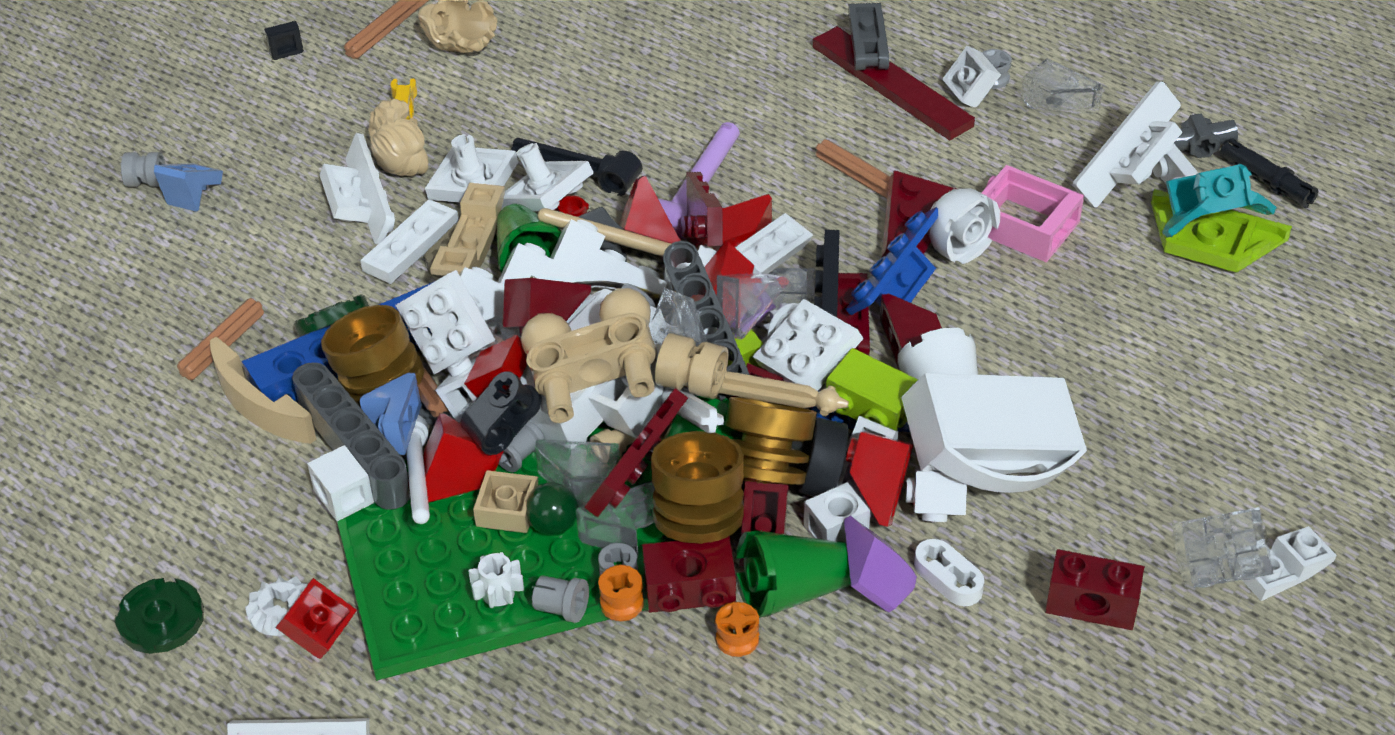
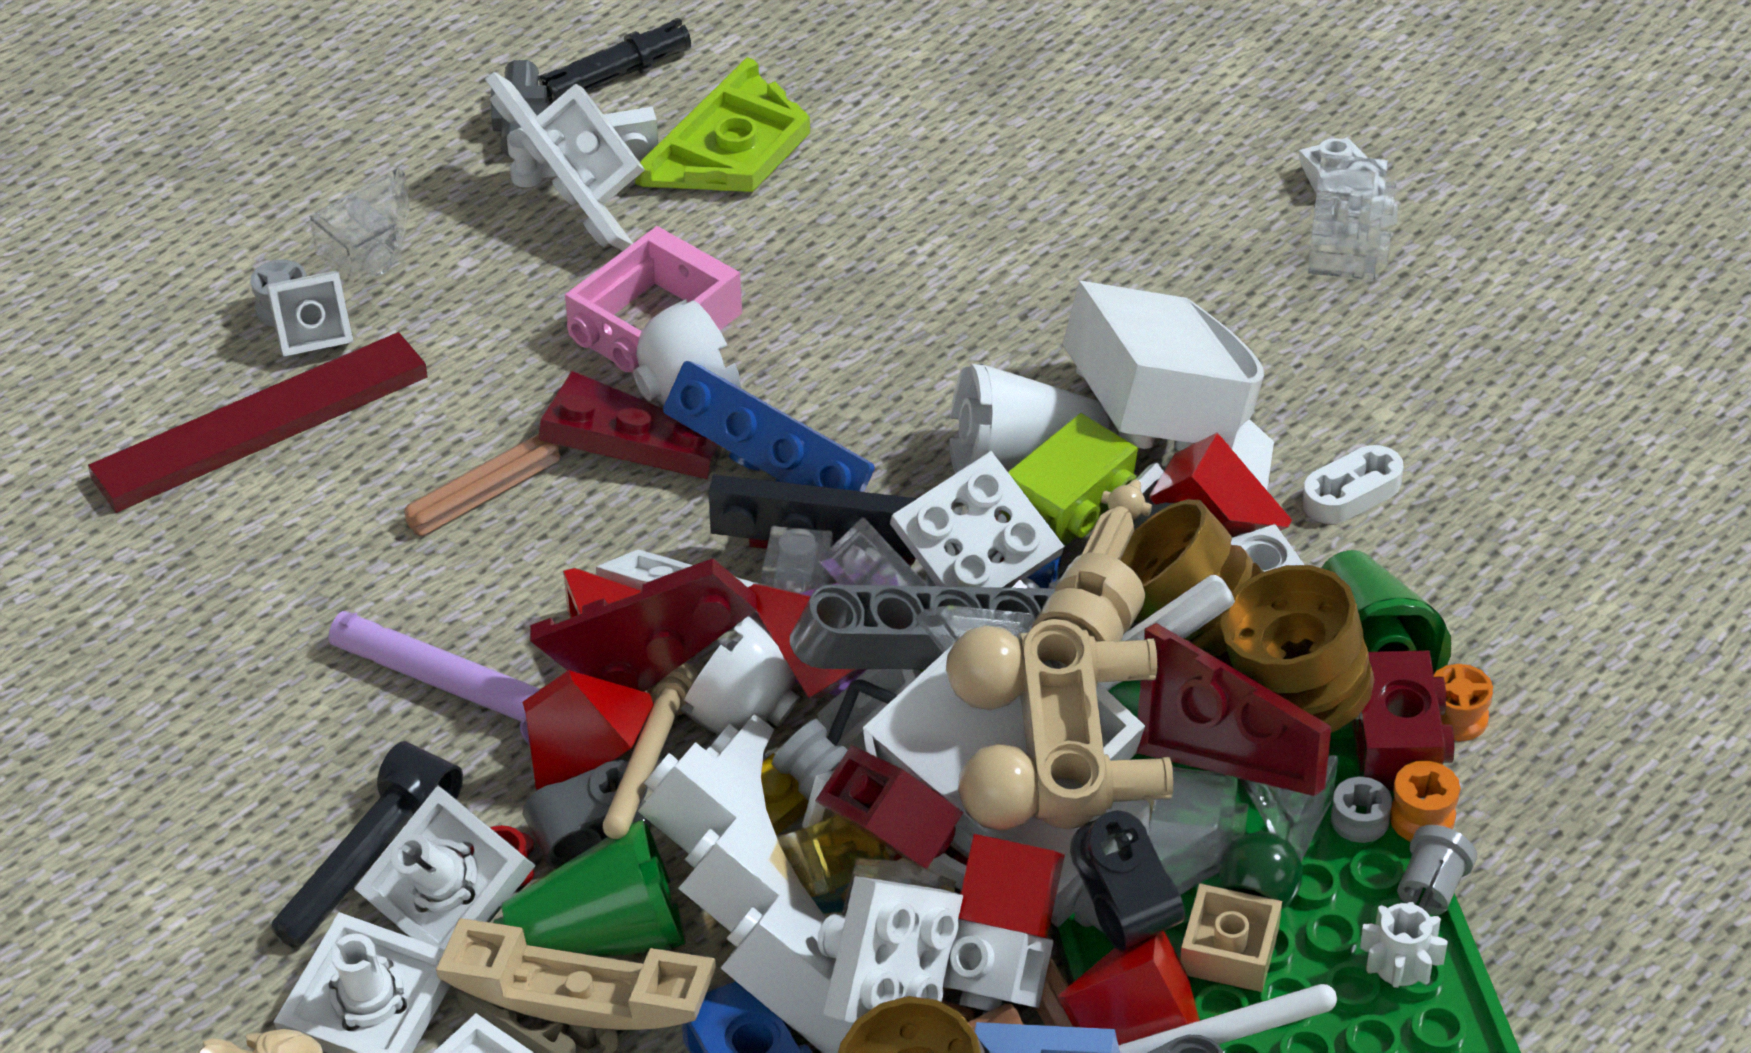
camera: 85 degrees left, 0 degrees up
(868, 36) = (158, 416): dark grey plate -> none
(876, 567) = (1358, 531): medium lavender slope -> none
(905, 323) = (907, 450): dark red slope -> none
(1095, 589) = (1403, 344): dark red brick -> none
(1212, 193) = (691, 109): teal piece -> none

